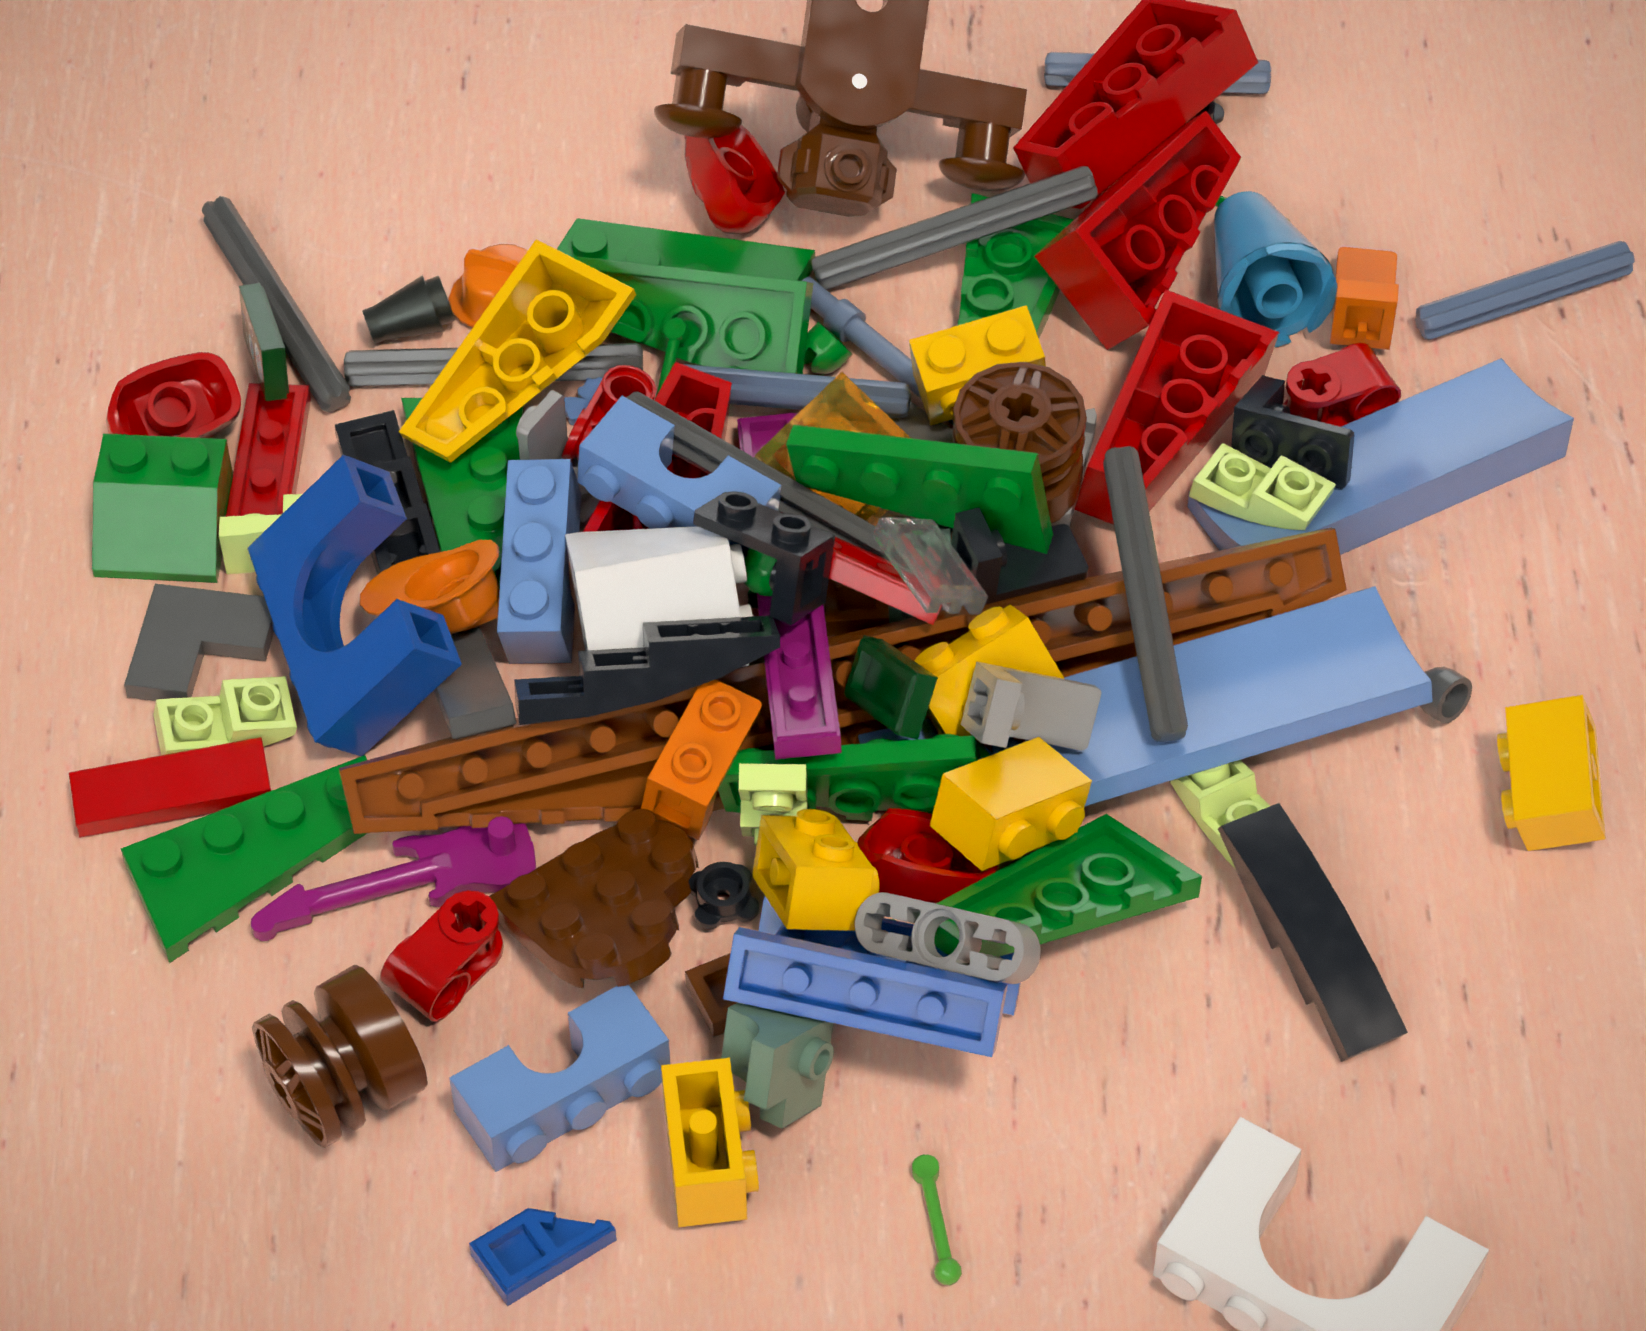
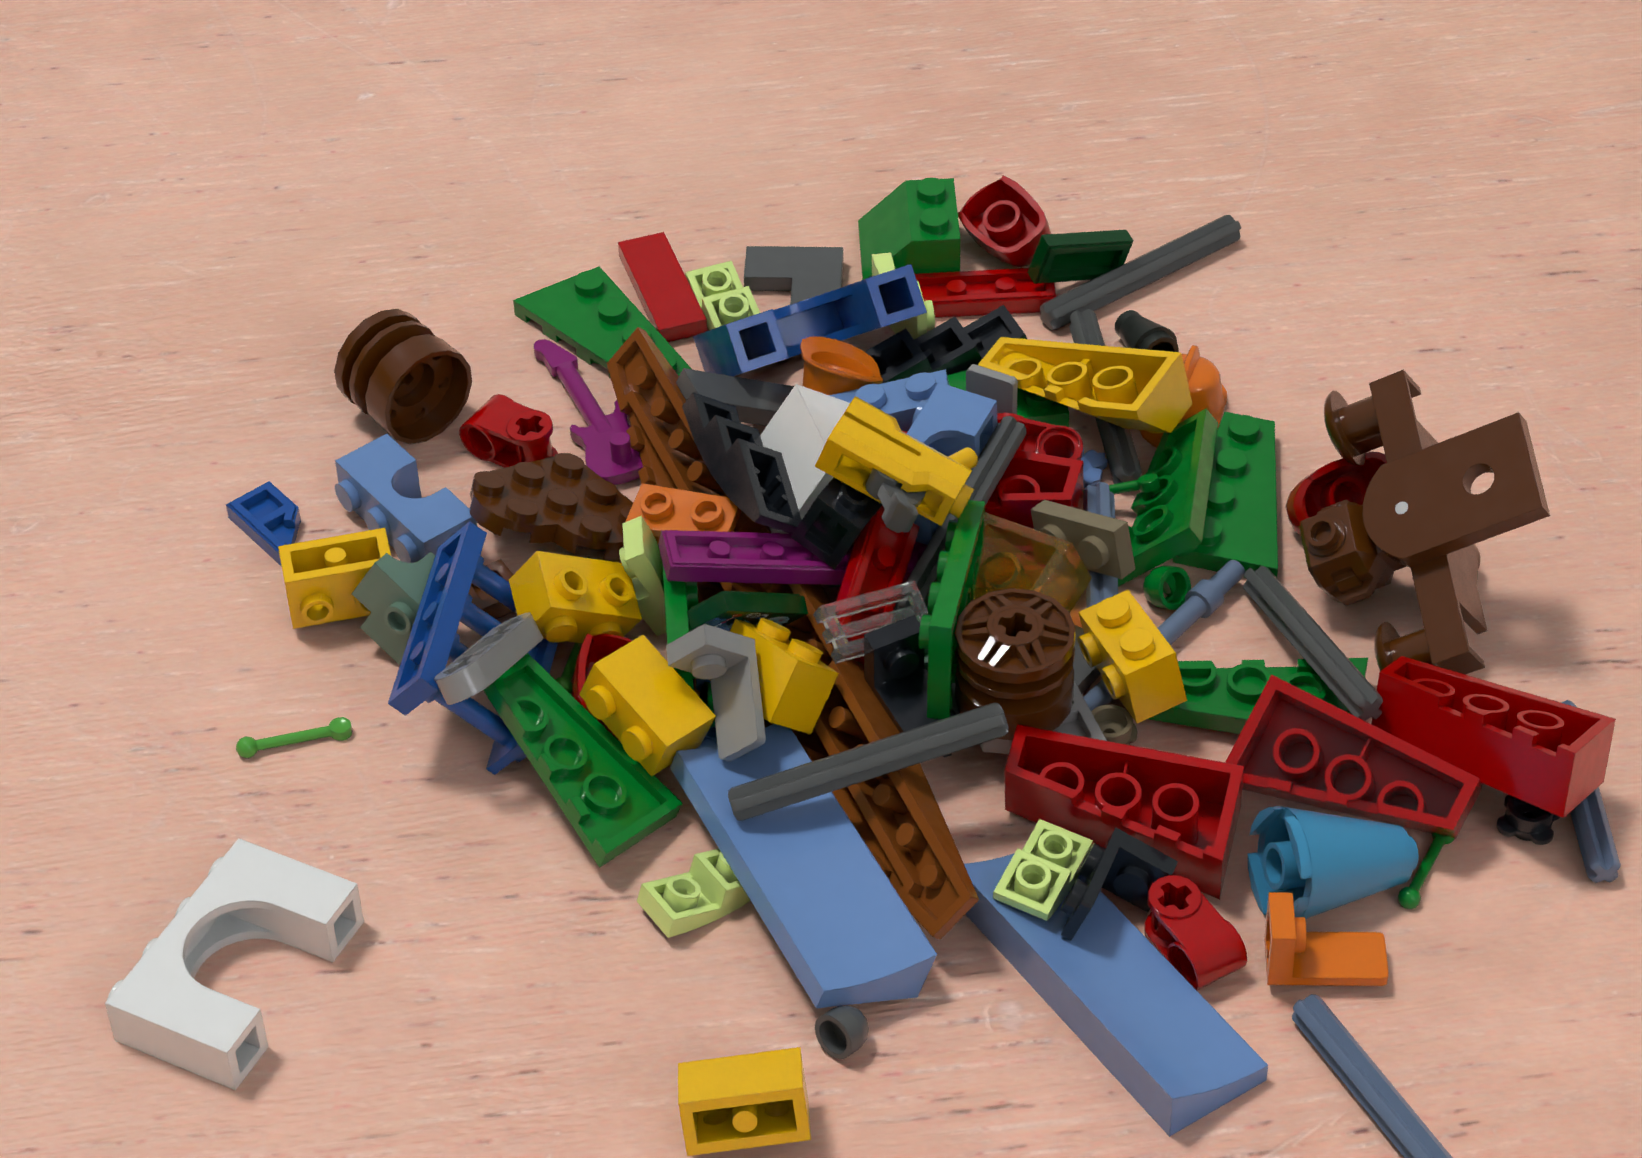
camera: 85 degrees right, 10 degrees down
(775, 474) = (896, 469): none -> yellow piece
(798, 378) = (1098, 539): none -> dark tan plate
(1313, 931) = (558, 941): black slope -> none

